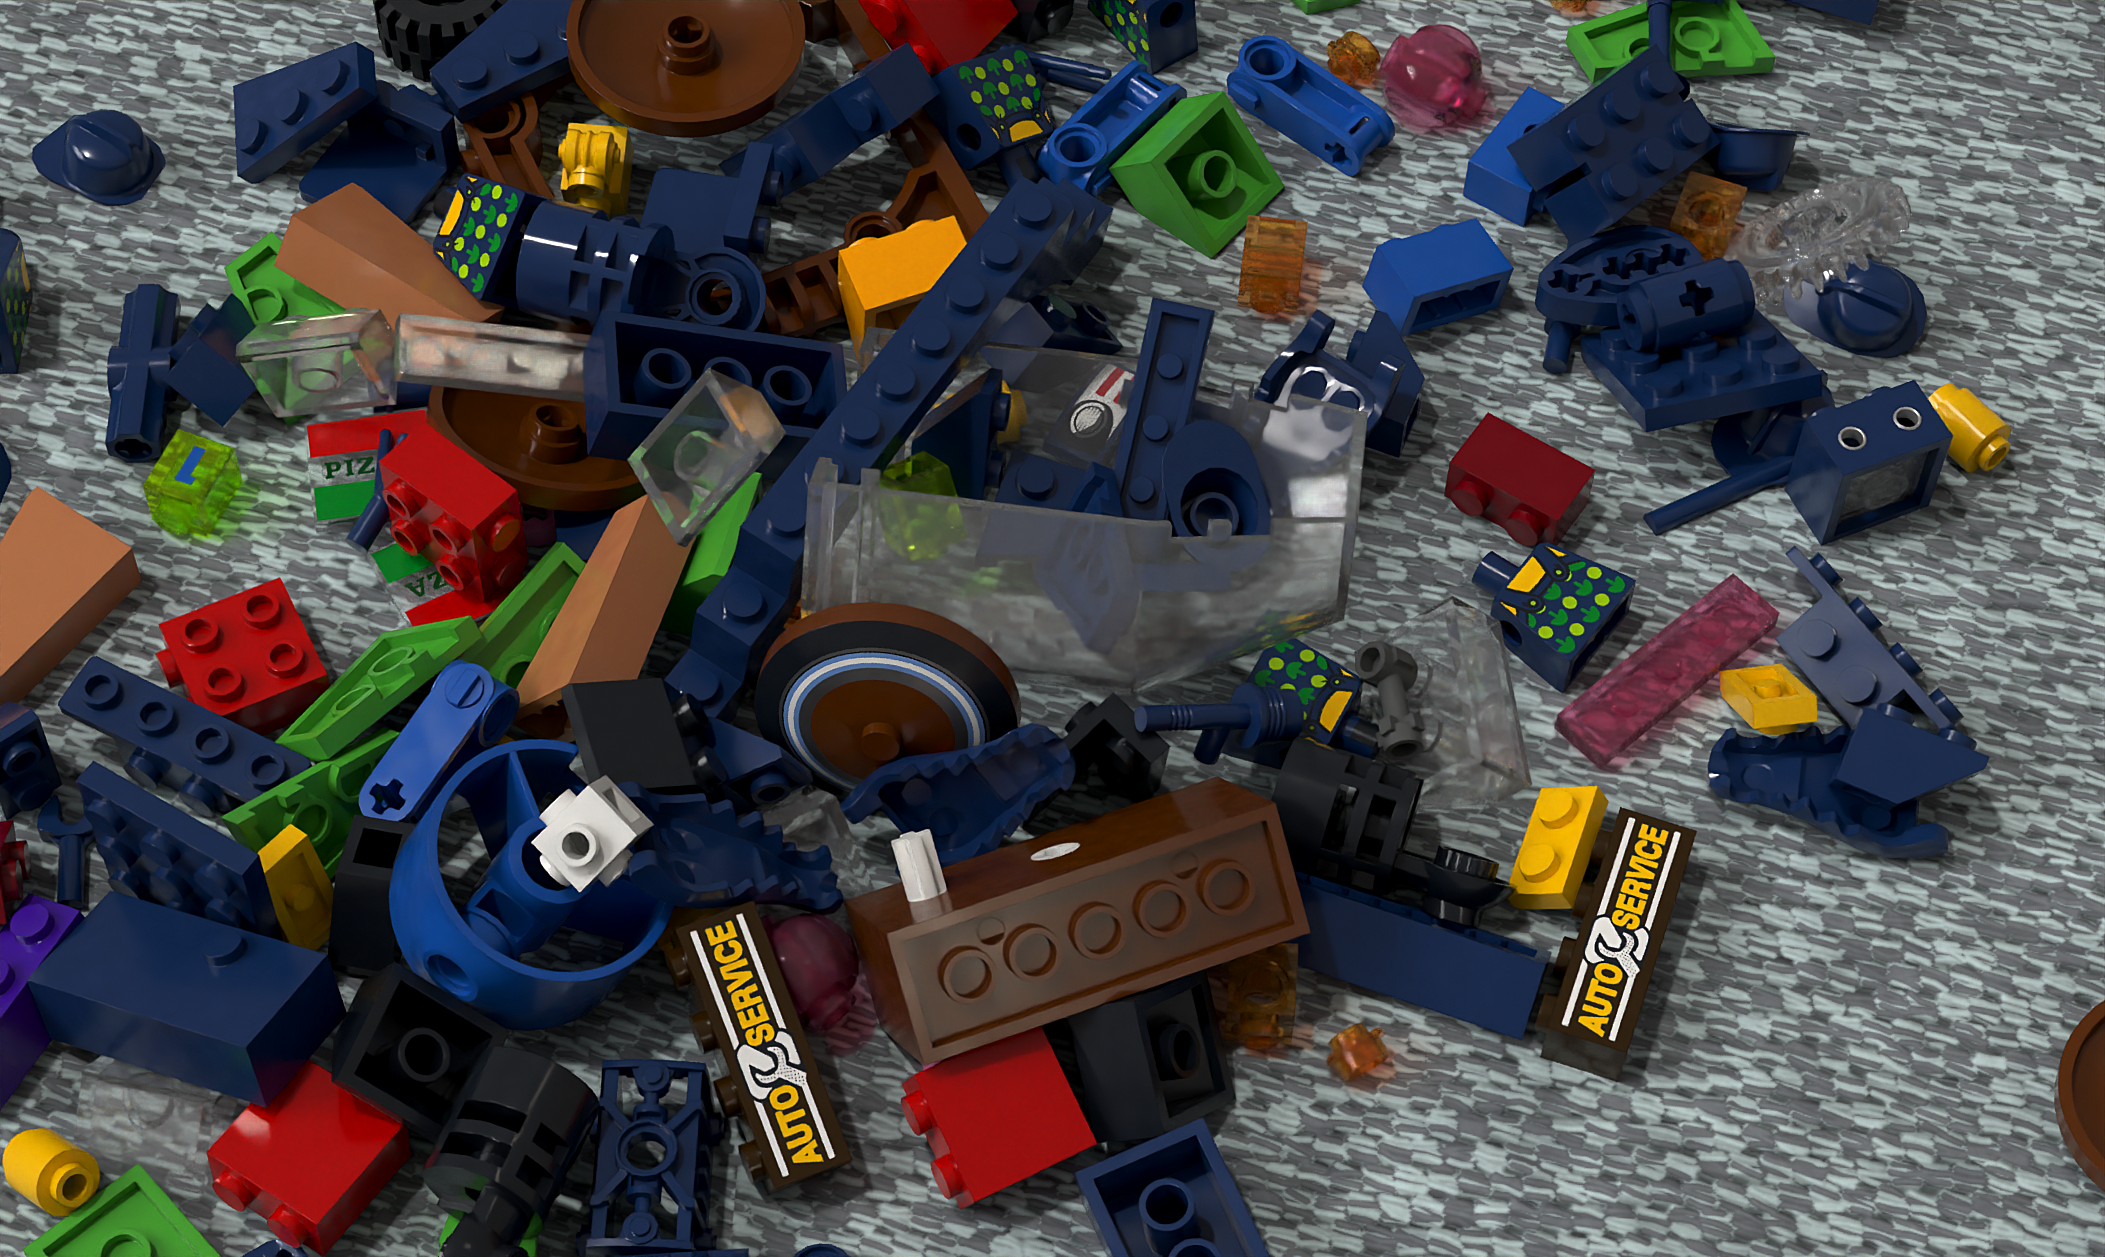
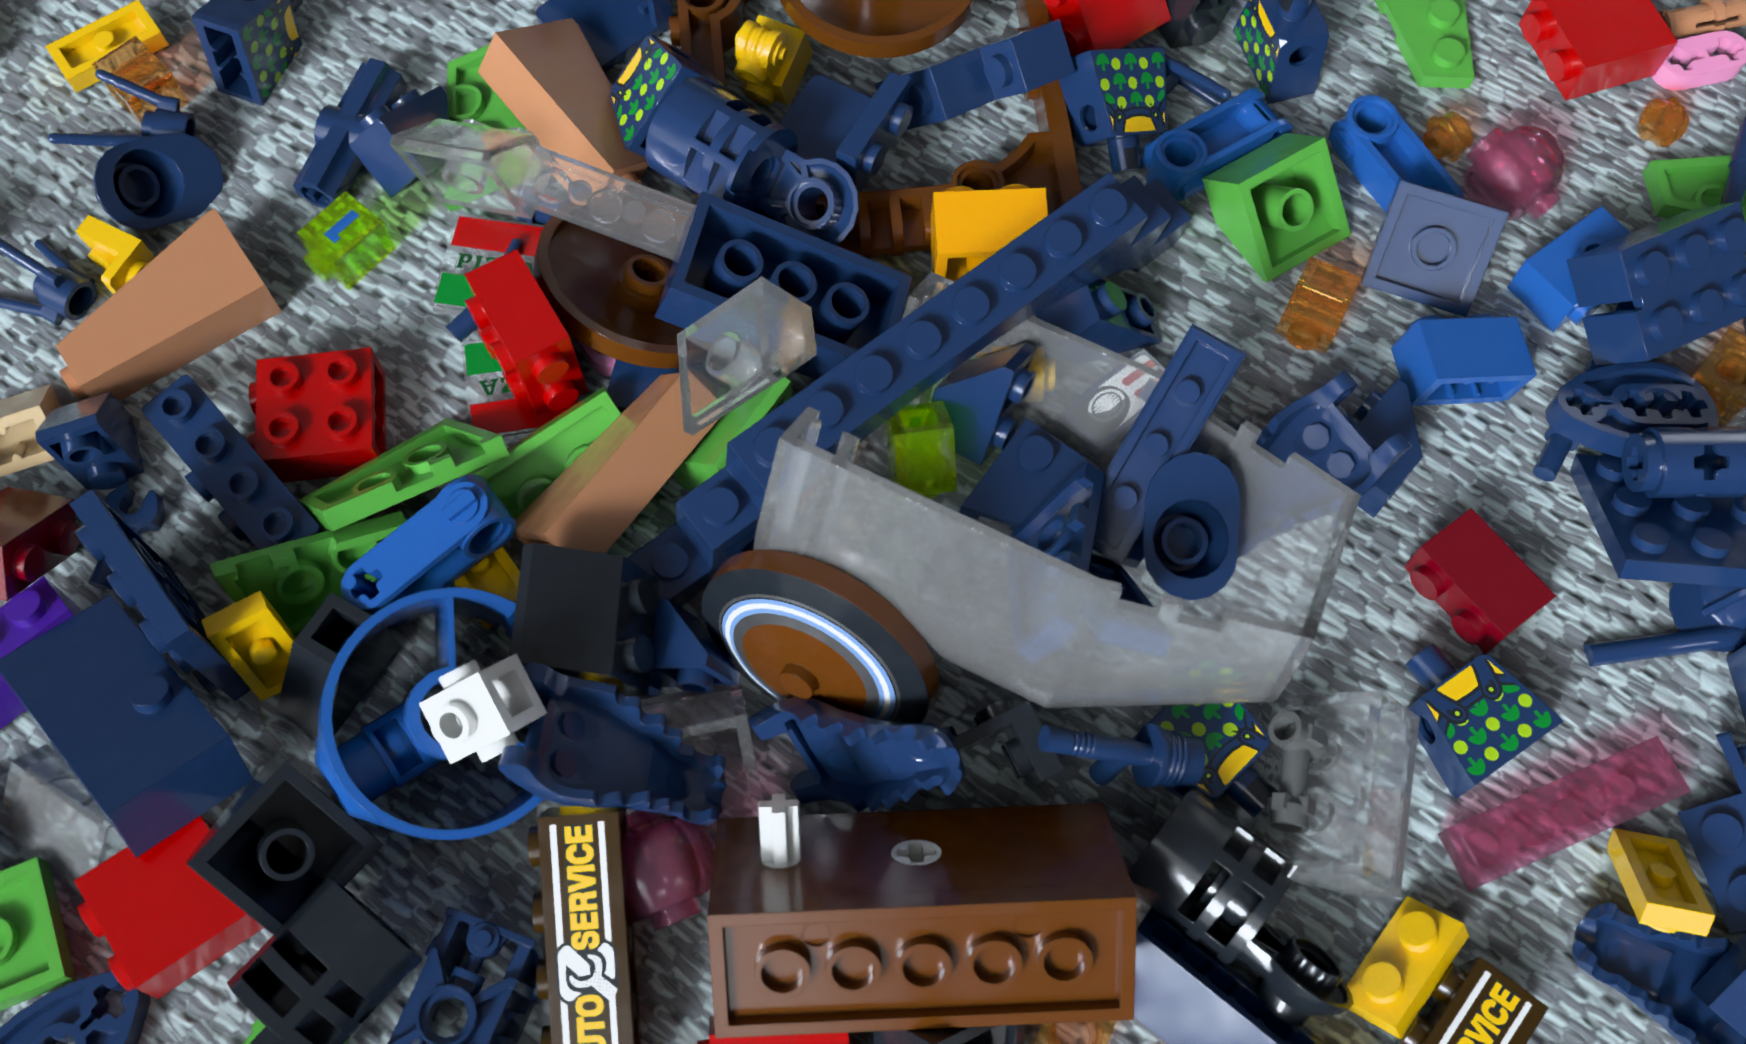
camera: 20 degrees right, 10 degrees up
(1371, 173) = (1433, 247): none -> dark blue plate

